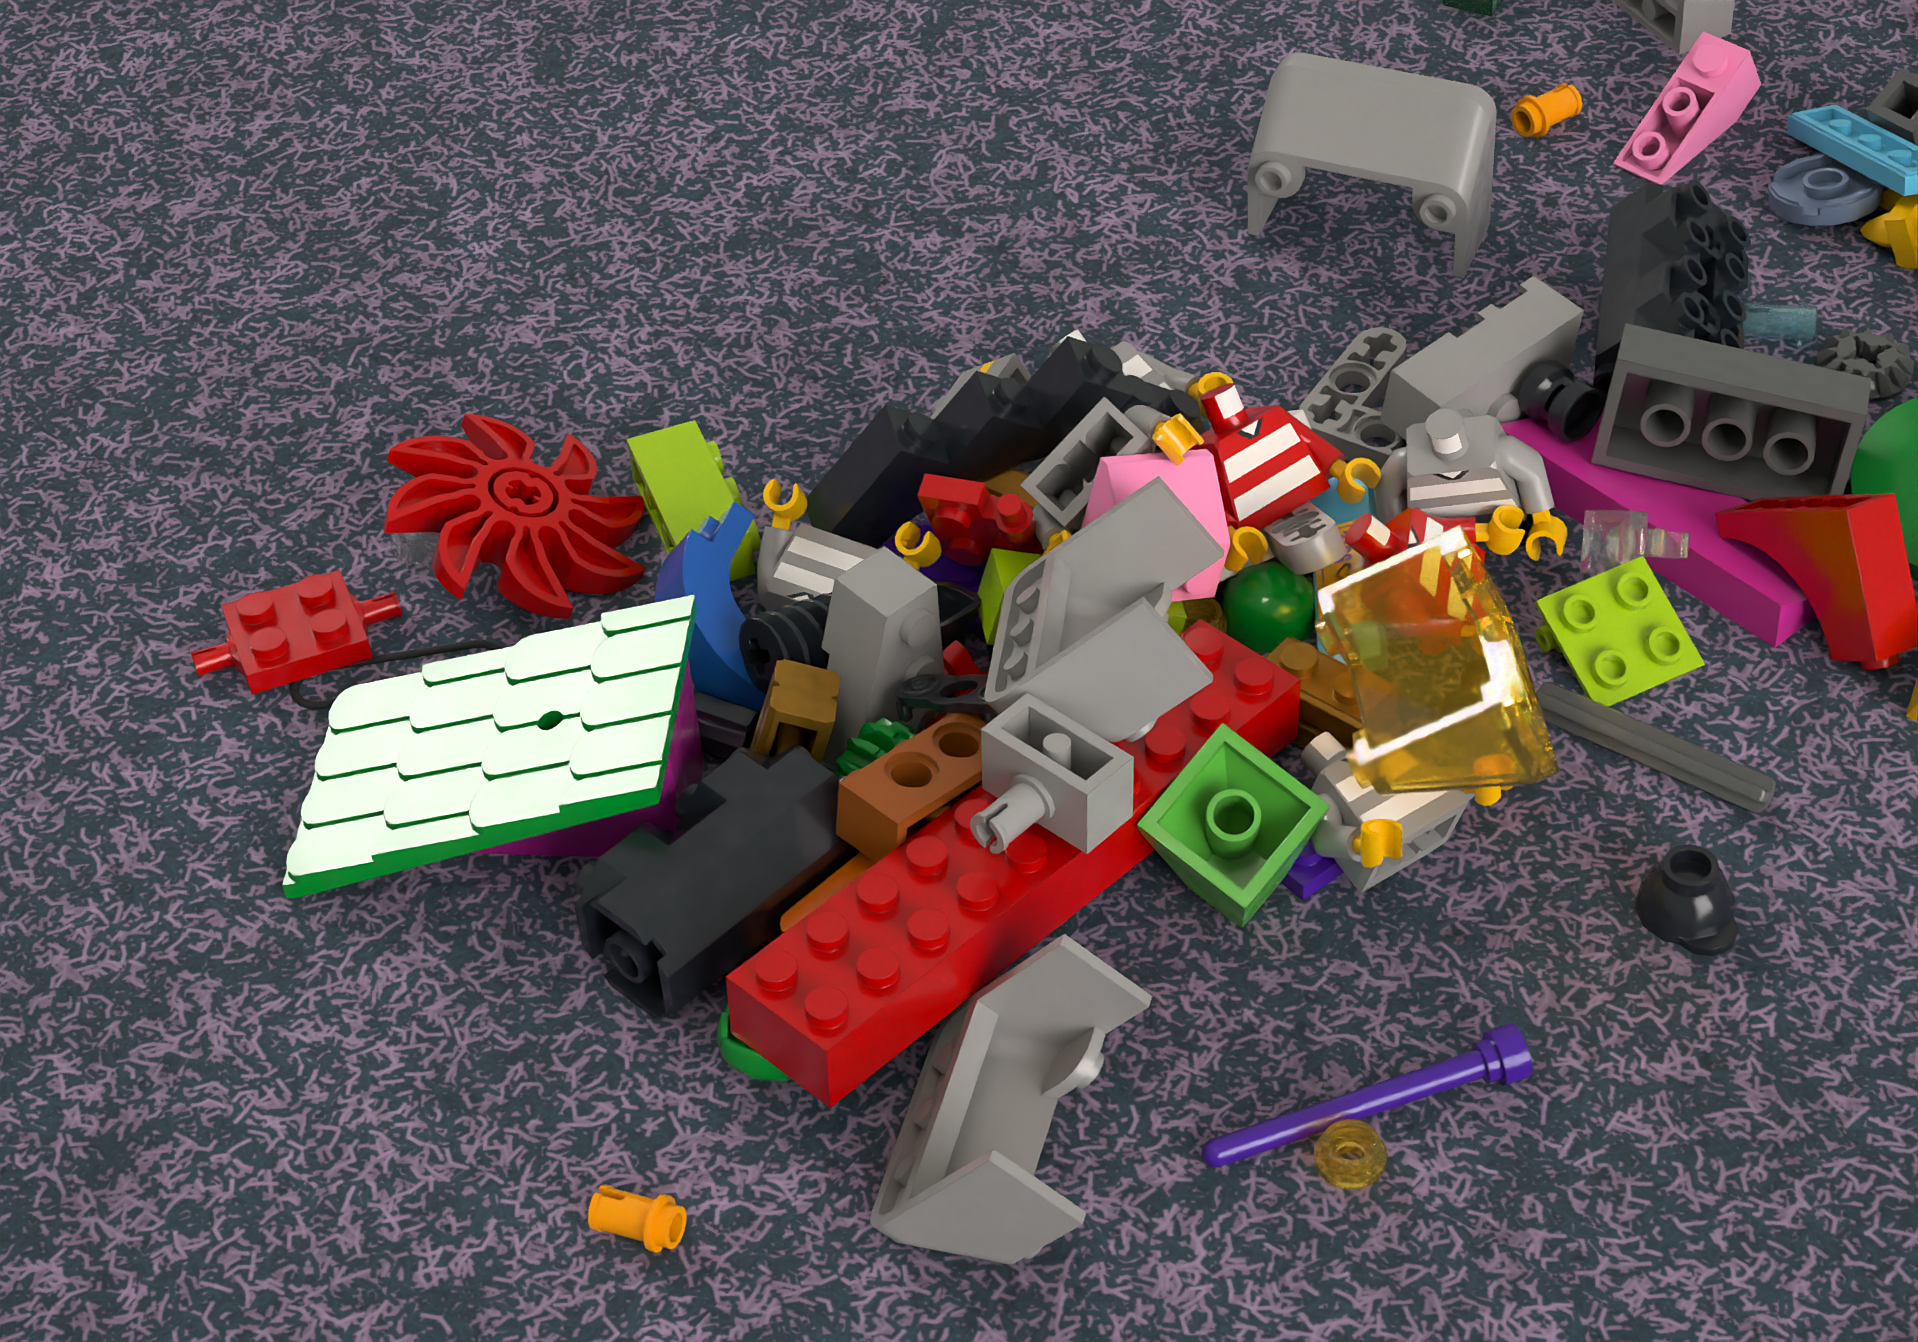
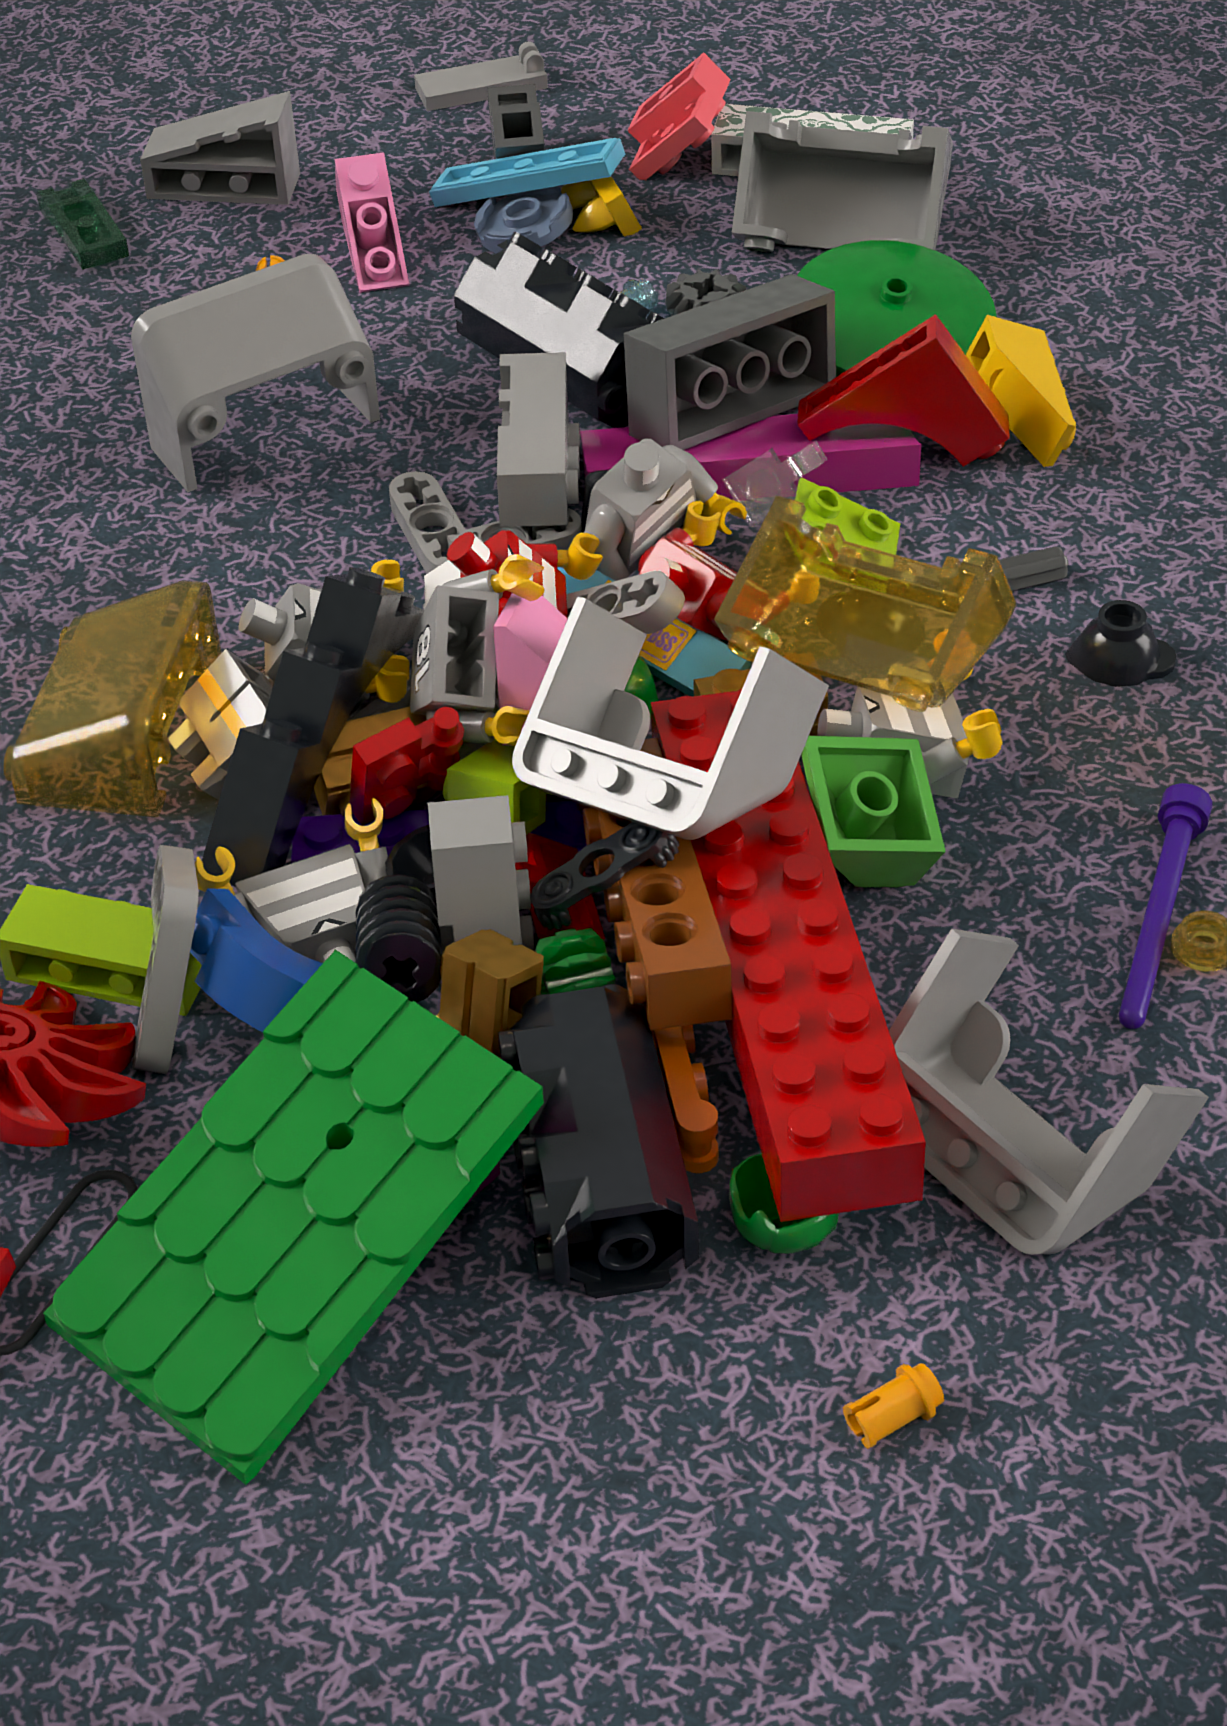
camera: 55 degrees left, 0 degrees up
(674, 510) = (174, 917): none -> light grey beam
(936, 334) = (112, 701): none -> clear yellow windscreen
(1050, 775) = (797, 840): light grey brick -> none
(1556, 397) = (593, 426): black wheel -> none

